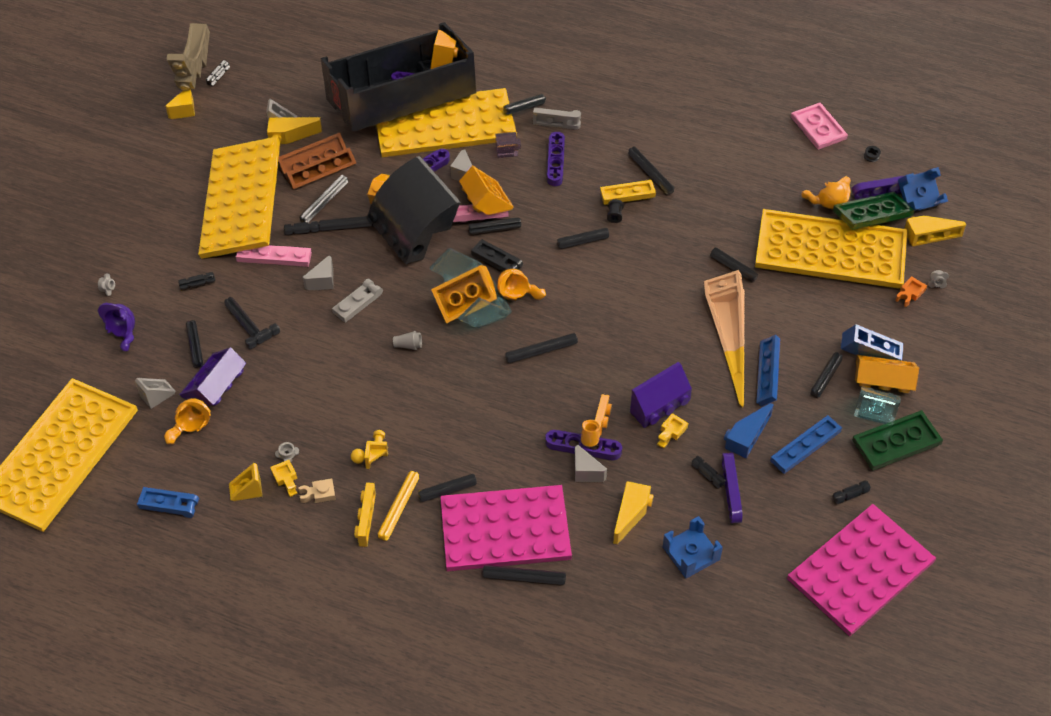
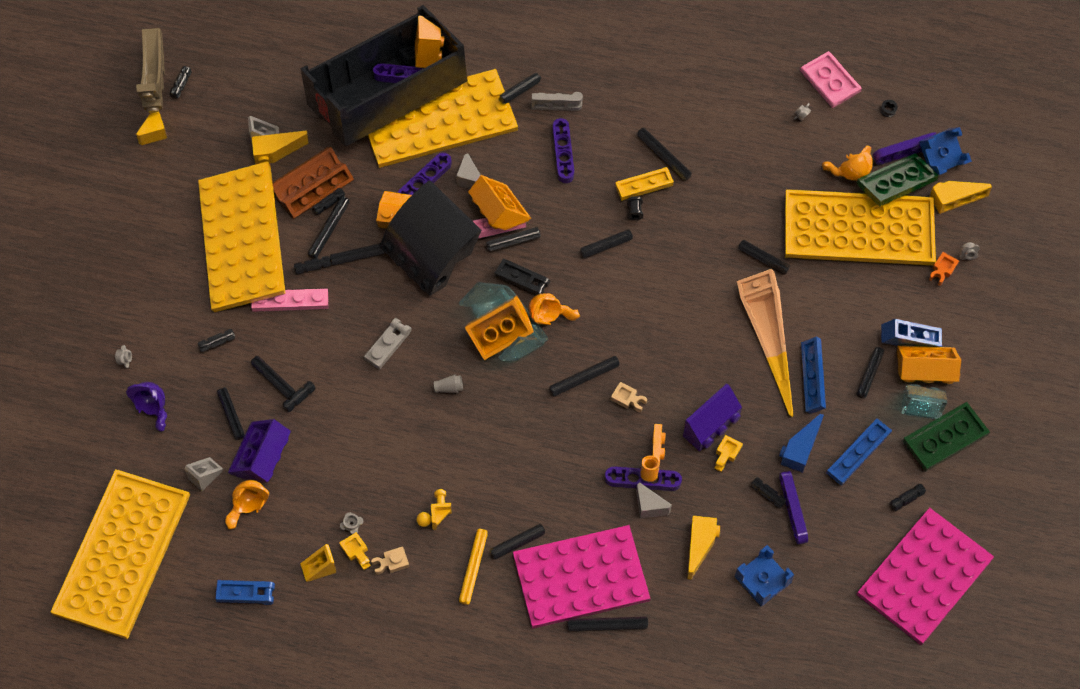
camera: 10 degrees left, 10 degrees up
(320, 276) = (345, 321): light grey slope -> none
(327, 178) = (328, 201): none -> black axle
(365, 514) = (443, 581): yellow plate -> none
(507, 144) = (510, 140): brick -> none
(580, 369) = (626, 396): none -> tan plate
(788, 148) = (802, 112): none -> light grey plate

